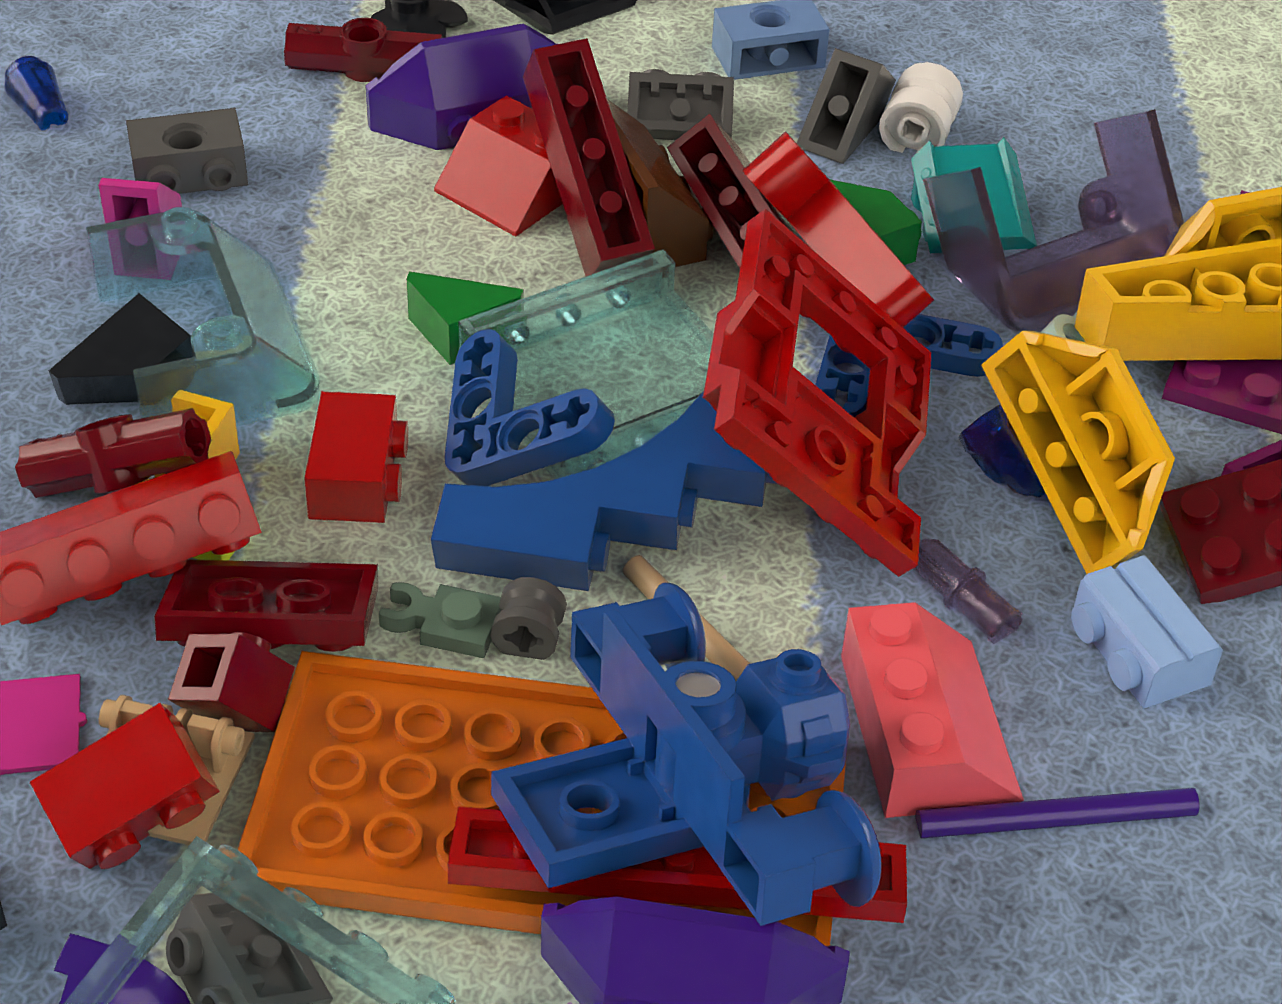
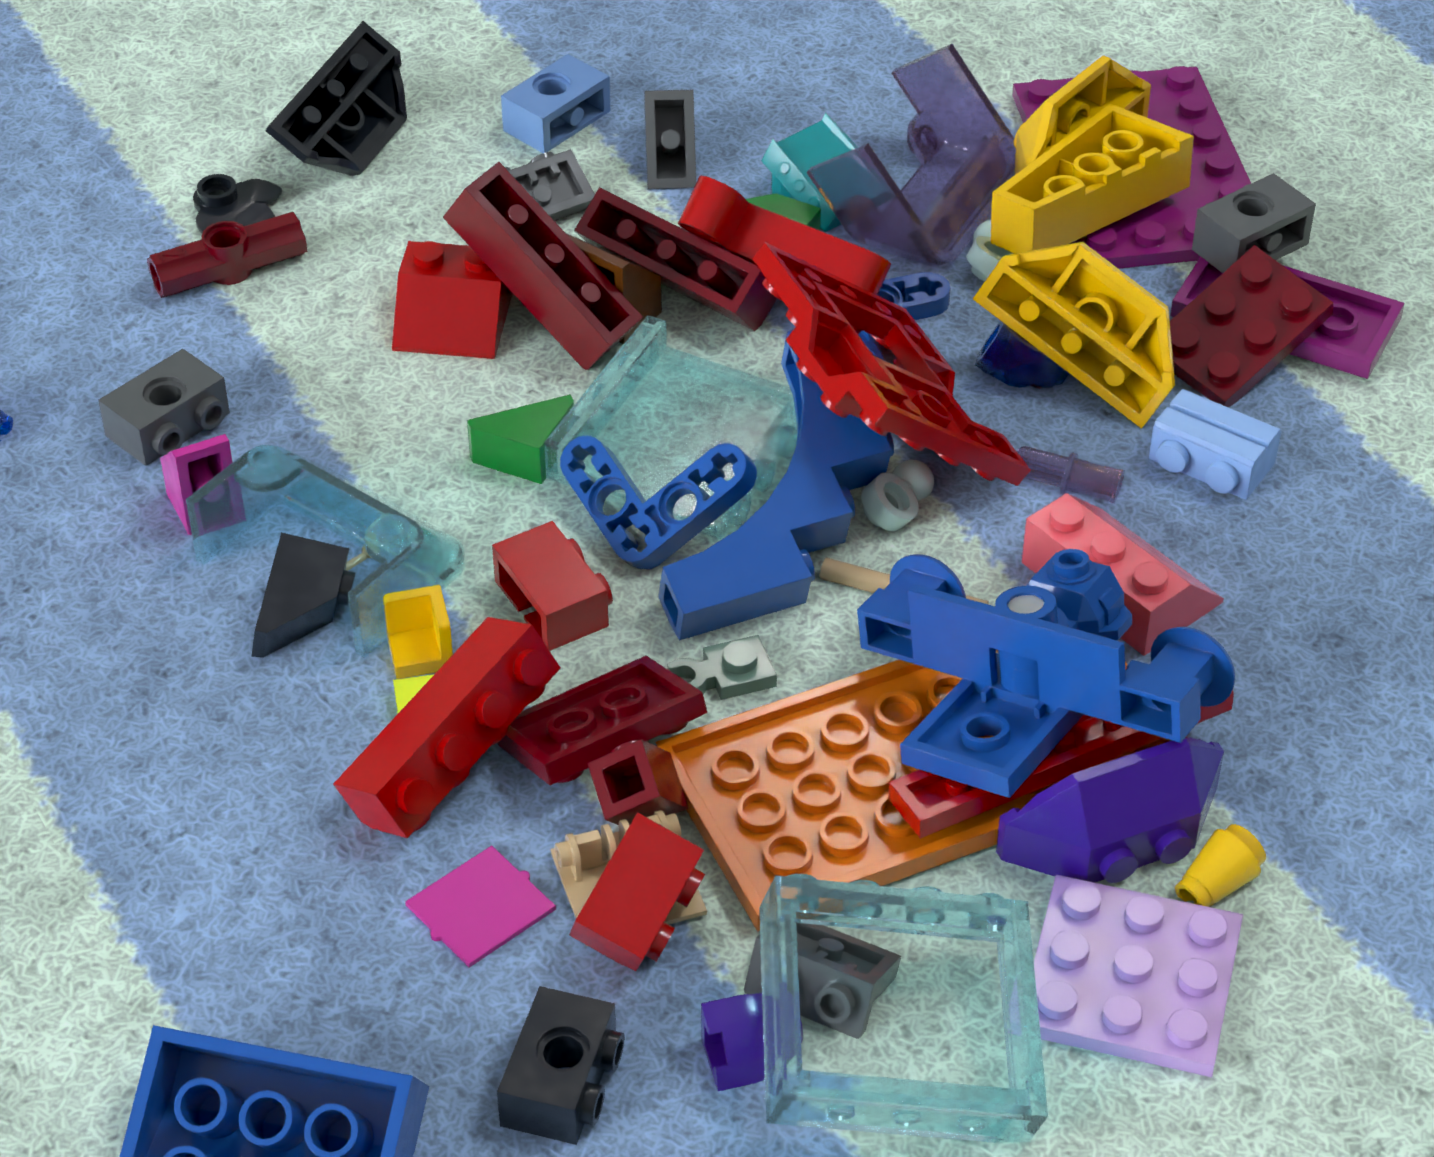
camera: 30 degrees left, 0 degrees up
(113, 453) = (376, 668): dark red piece -> none
(448, 81) = (353, 254): dark purple wedge -> none
(529, 618) = (794, 639): dark grey wheel -> none
(764, 528) = (893, 497): none -> light aqua plate
(921, 107) = (731, 116): white wheel -> none
(1057, 812) = (1265, 586): dark purple bar -> none

